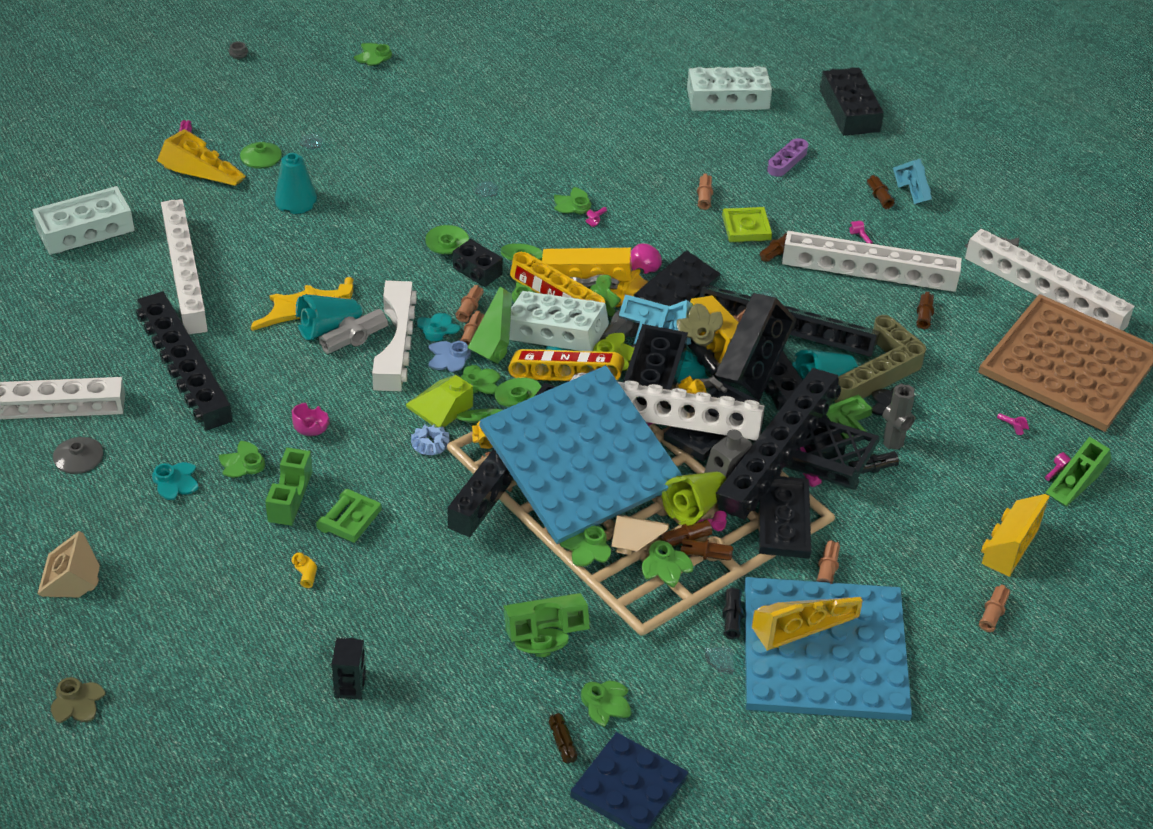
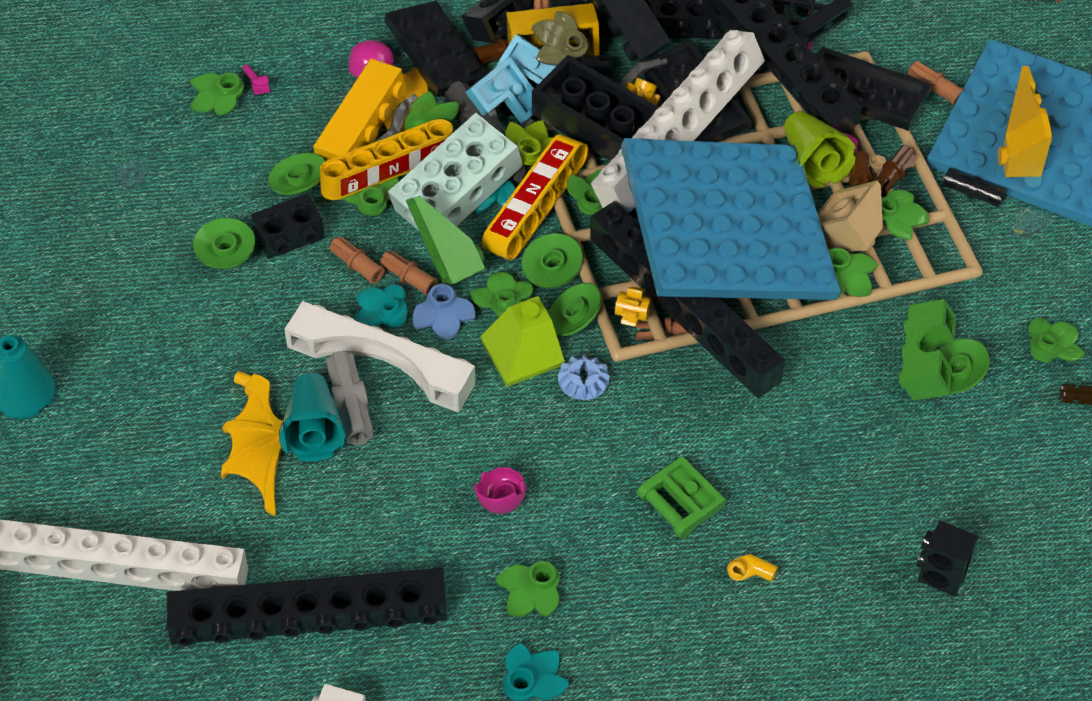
camera: 65 degrees left, 10 degrees up
(286, 496) = (595, 533): bright green arch -> none
(728, 453) = (768, 92): dark grey torso -> none

